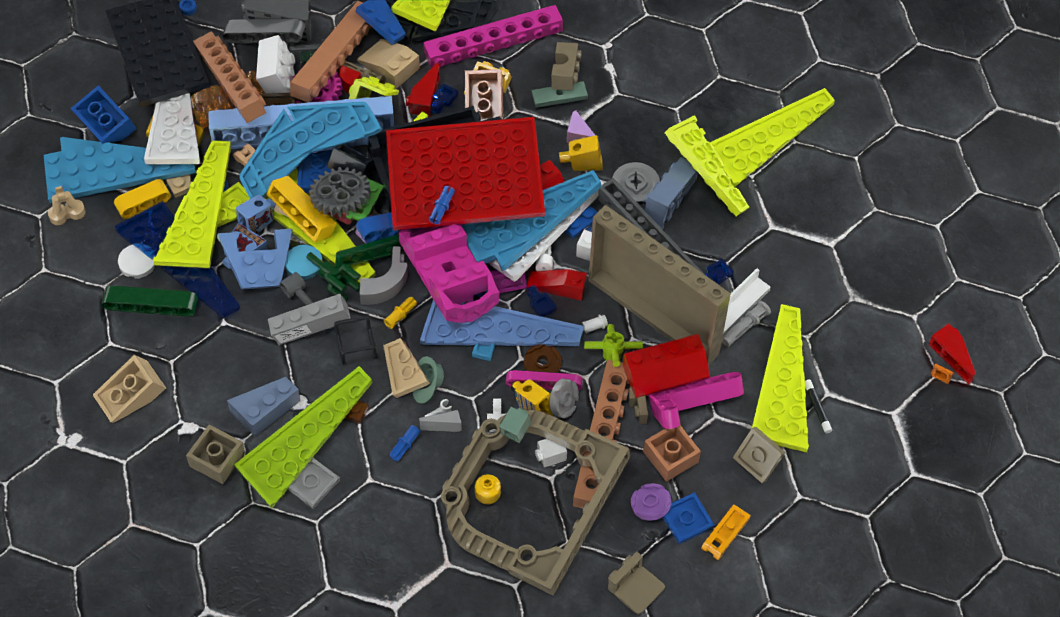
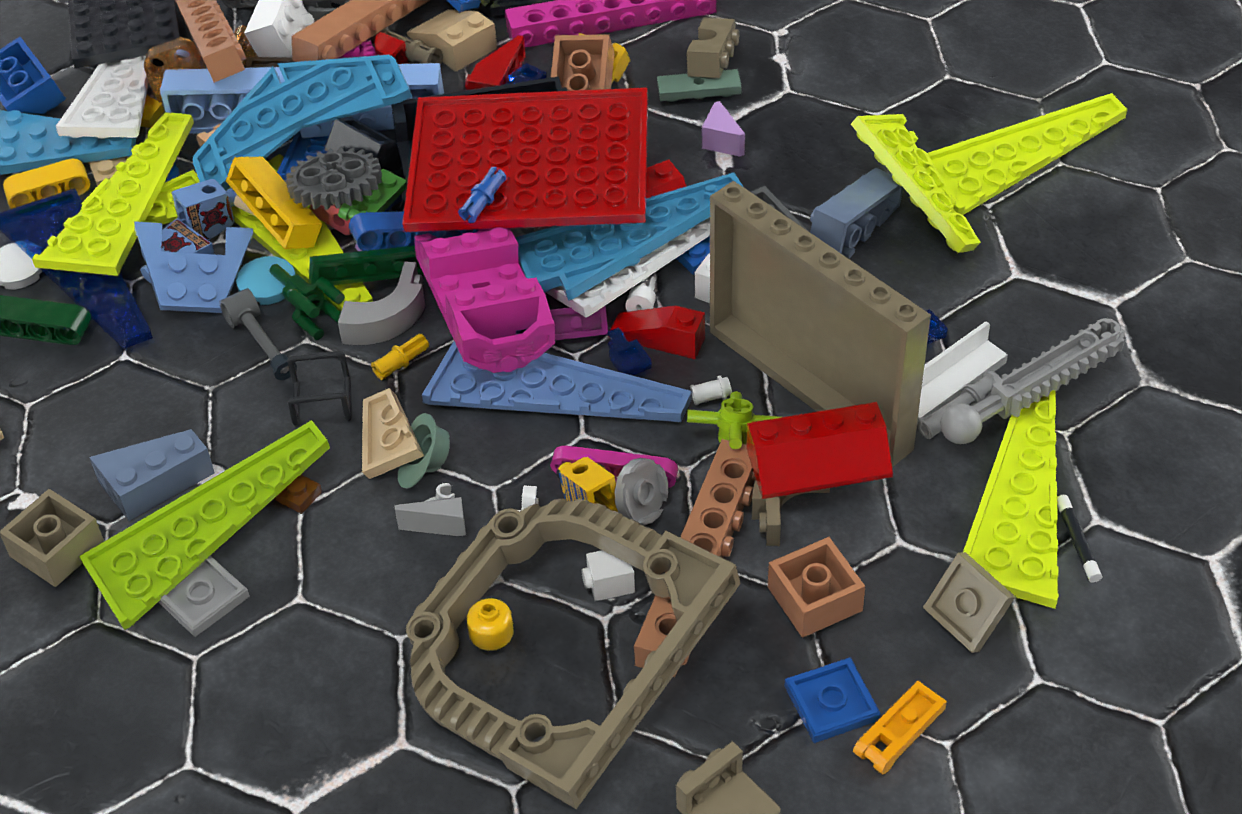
camera: 10 degrees right, 10 degrees down
(308, 319) = (248, 351): light grey brick -> none
(363, 87) = (411, 53): neon yellow bracket -> none
(404, 443) = (366, 545): blue axle -> none
(483, 351) = (523, 421): dark azure tile -> none
(515, 424) = (546, 515): sand green brick -> none
(539, 352) = (614, 427): reddish brown tile -> none
(583, 154) = (724, 154): yellow torso -> none
(645, 177) = (792, 189): light grey gear -> none
(651, 502) = (771, 667): medium lavender tile -> none
(717, 388) = (816, 511): dark pink beam -> none
(777, 315) = (1035, 379): none -> light grey gear

